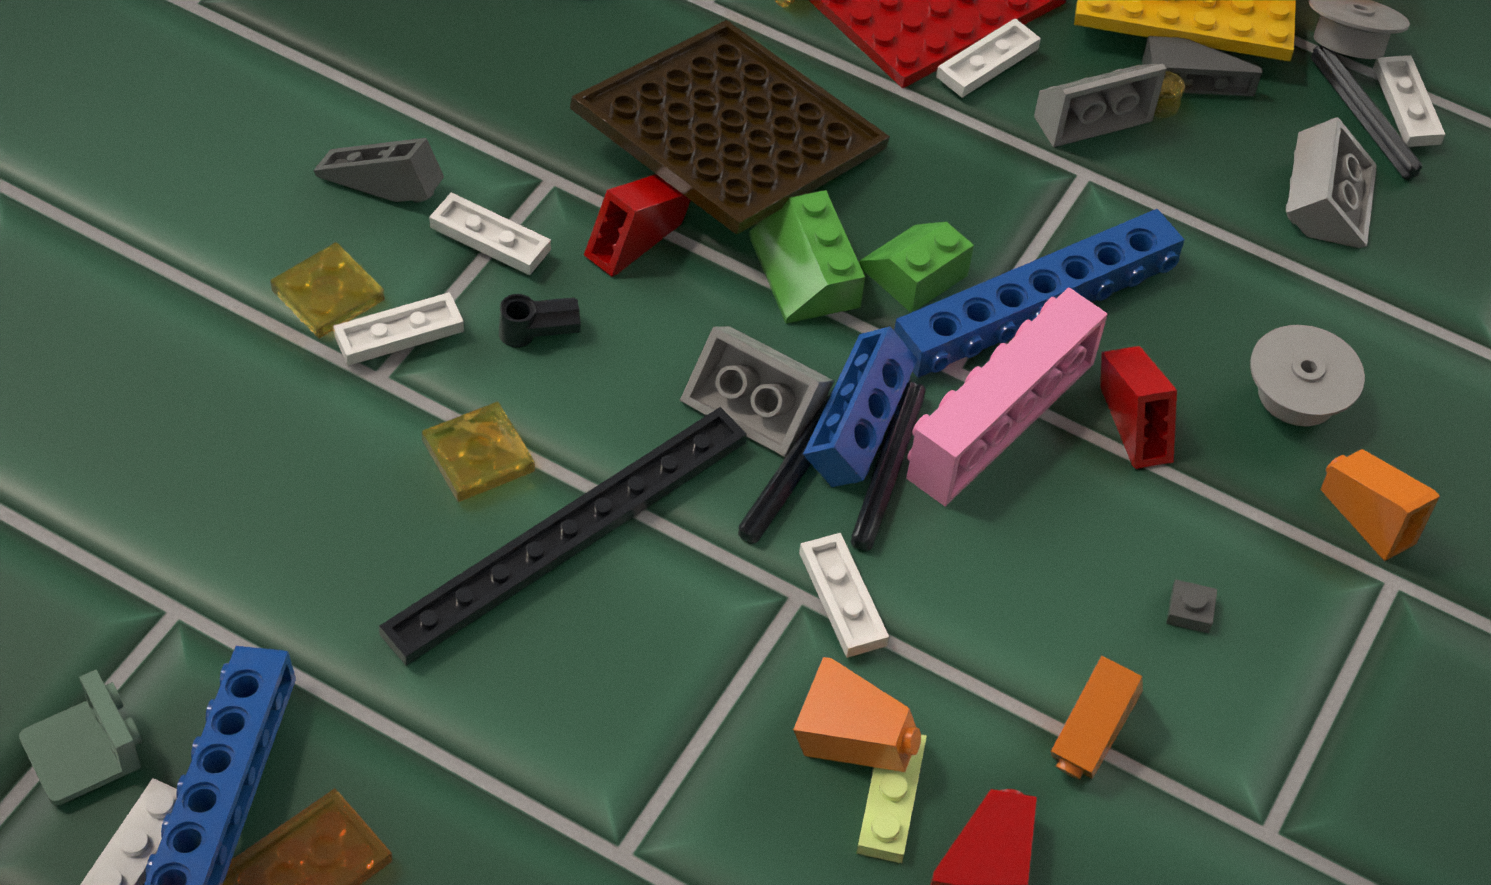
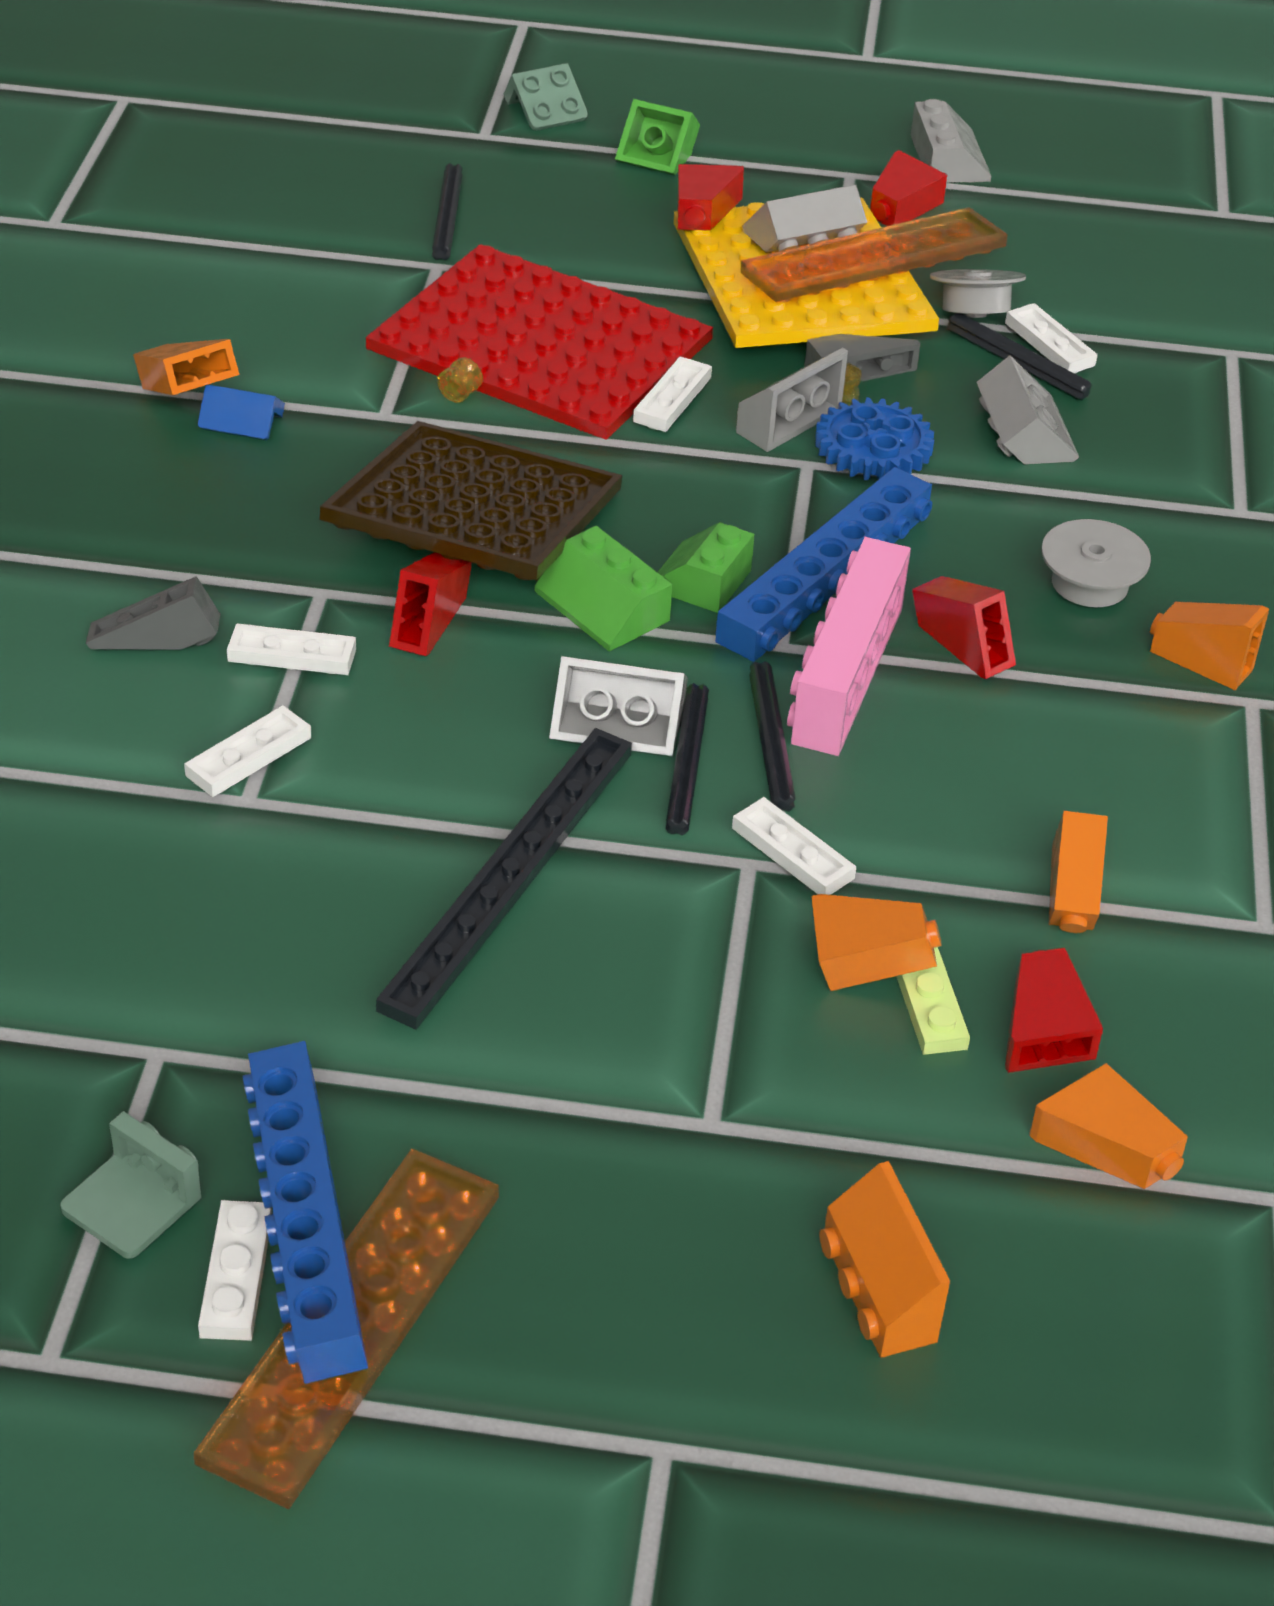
camera: 20 degrees left, 10 degrees down
(327, 289) = (155, 739): clear yellow plate -> none
(478, 451) = (384, 830): clear yellow plate -> none
(524, 318) = (370, 706): black piece -> none
(860, 407) = (725, 691): blue brick -> none
(1162, 166) = (874, 438): none -> blue gear
(1191, 606) = (1098, 769): dark grey plate -> none

